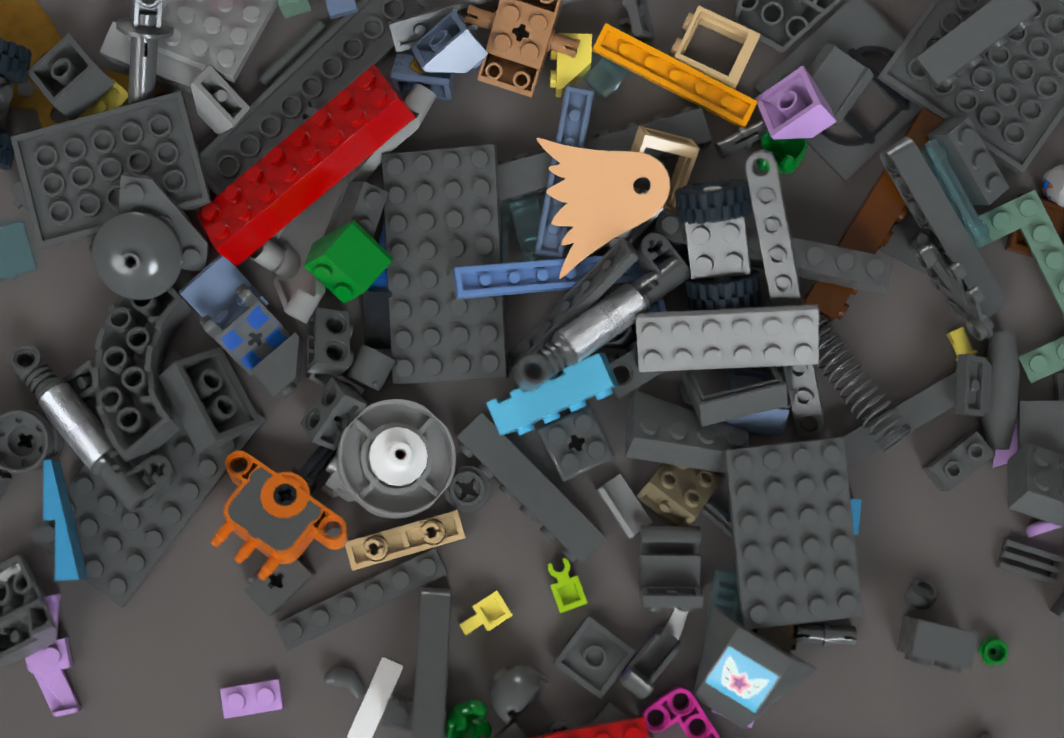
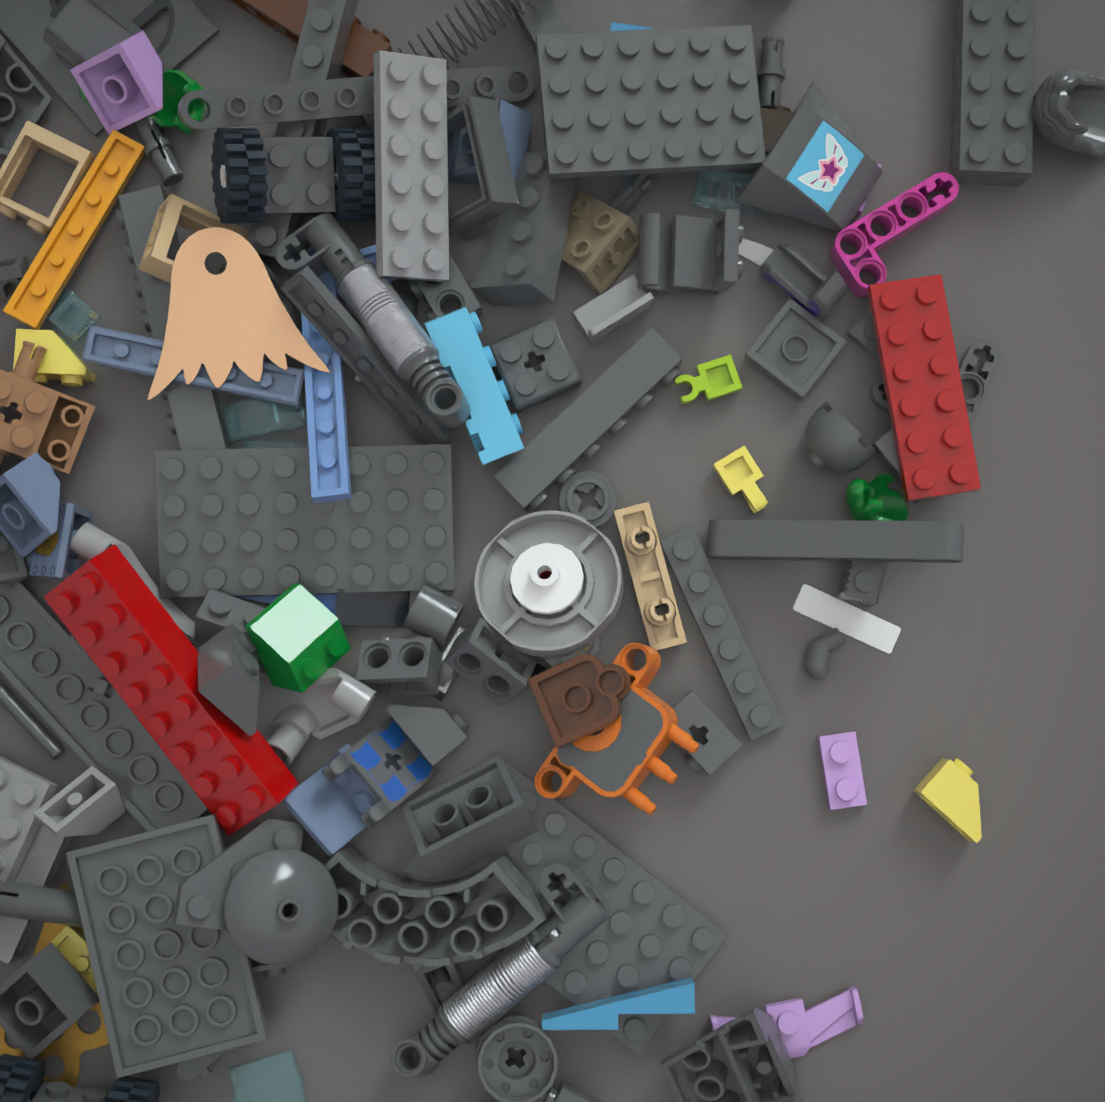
camera: 85 degrees left, 0 degrees up
(302, 484) = (580, 697): none -> reddish brown plate
(314, 209) = (231, 676): none -> dark grey slope

